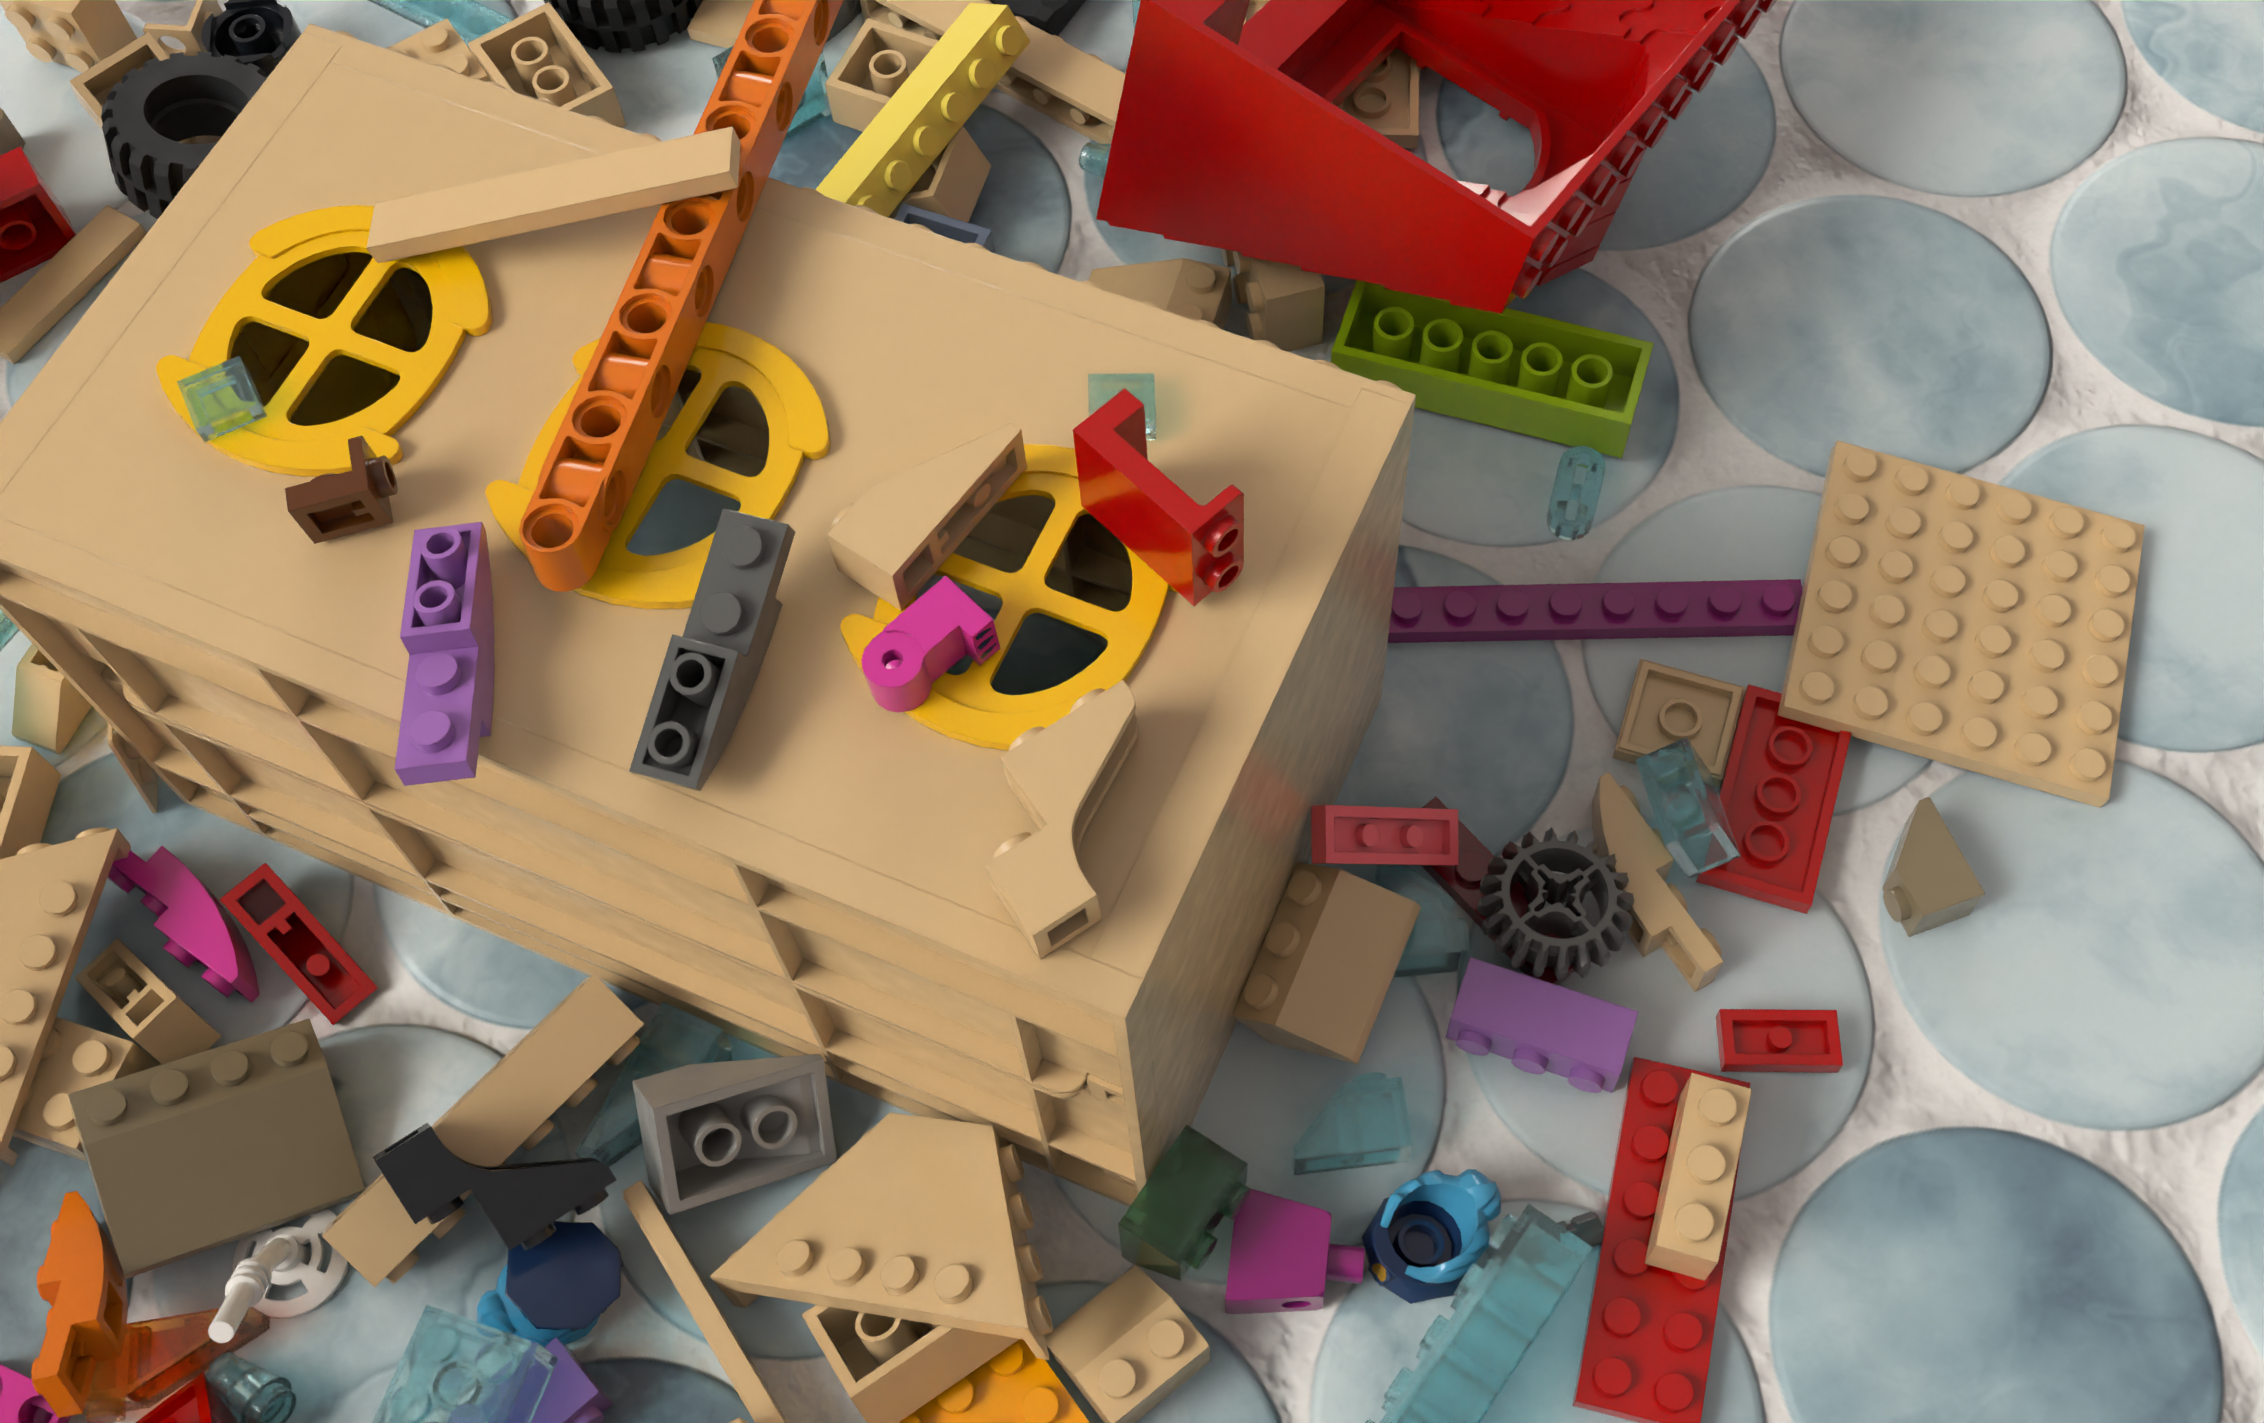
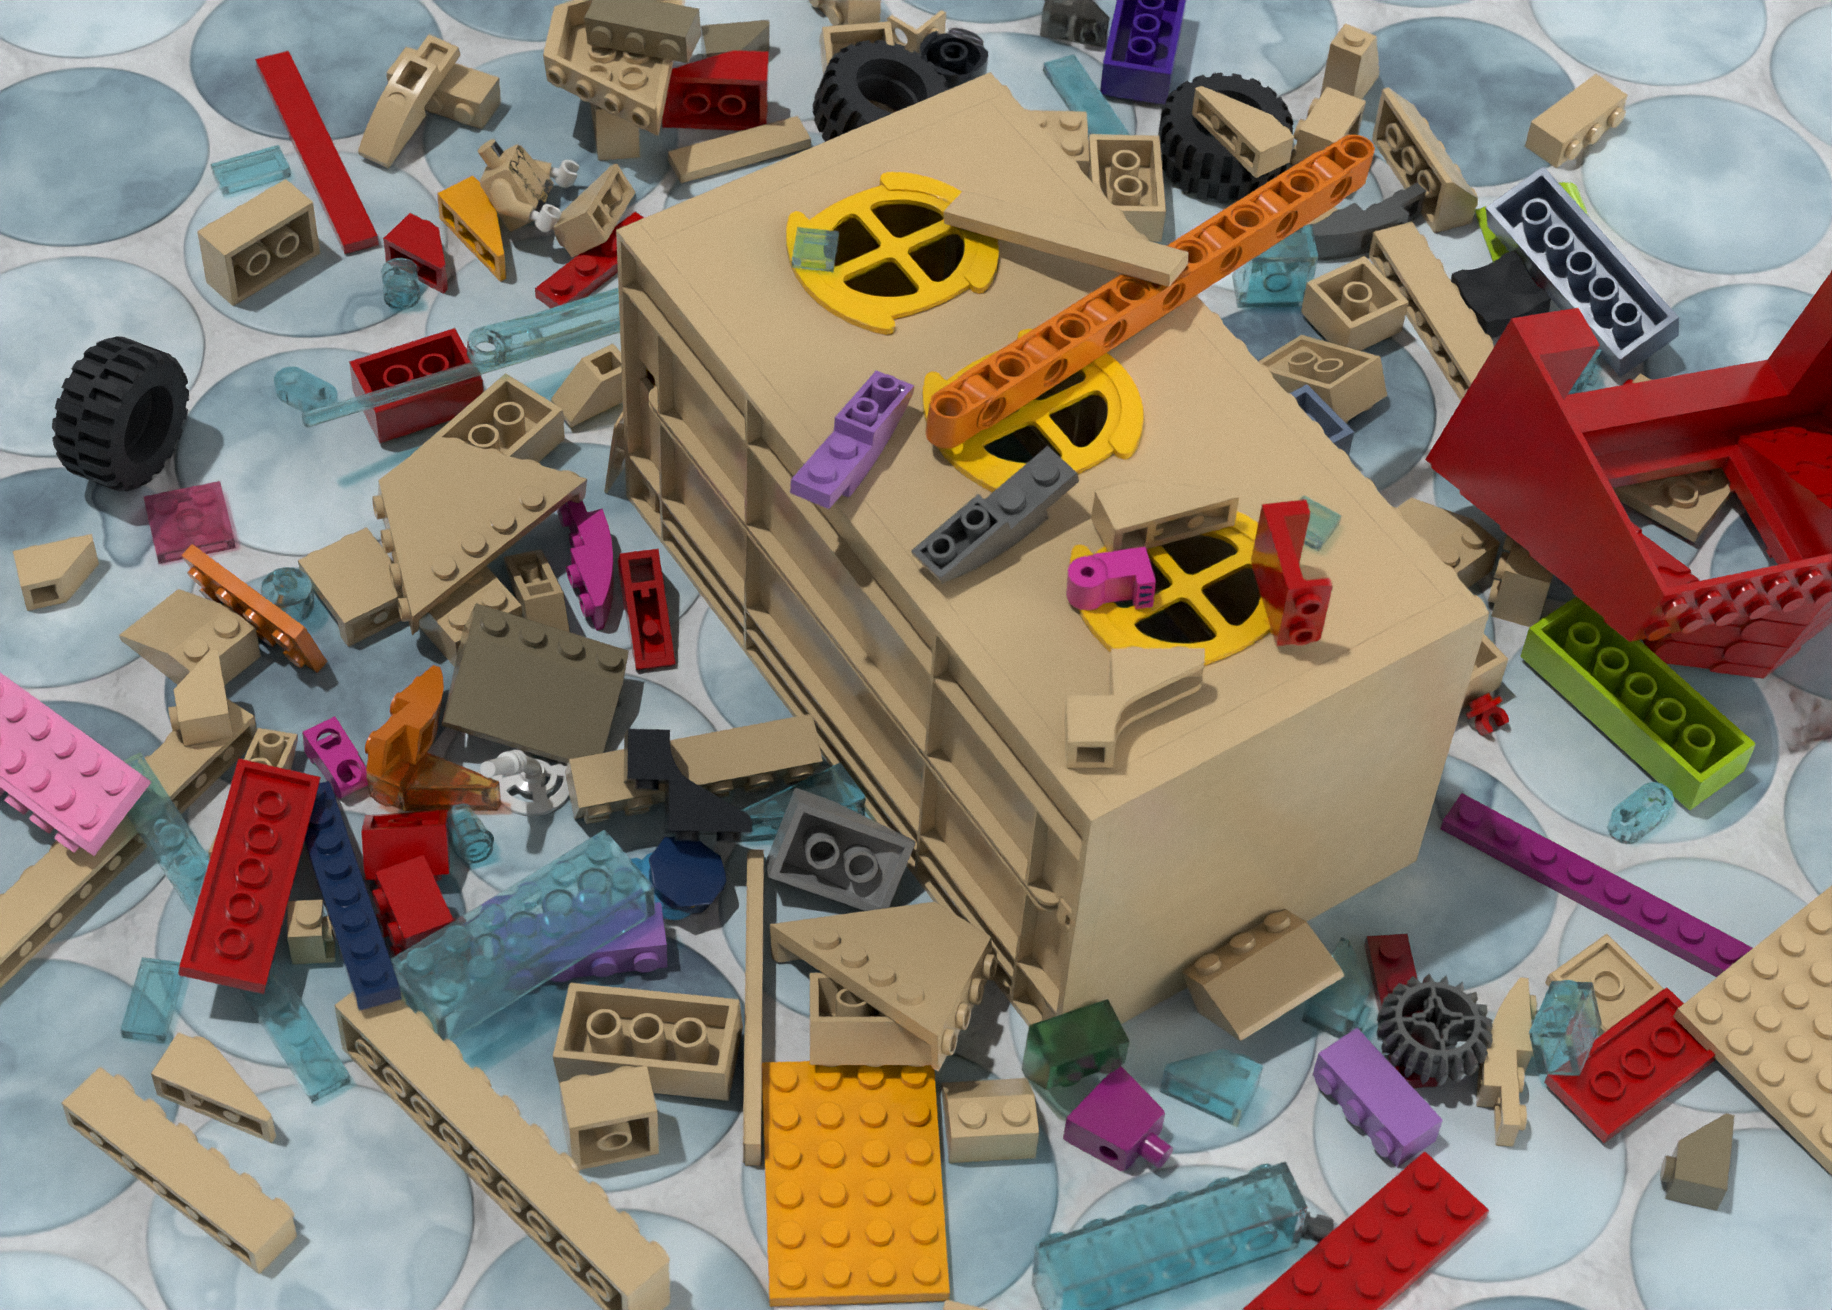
camera: 25 degrees right, 10 degrees down
(345, 501) = (849, 336): reddish brown bracket -> none
(927, 109) = (1360, 335): light yellow brick -> none
(1384, 835) = (1350, 922): coral plate -> none
(1431, 1233) = (1218, 1152): piece -> none
(1698, 1177) = (1409, 1226): tan brick -> none
(1779, 1040) = (1526, 1198): red plate -> none

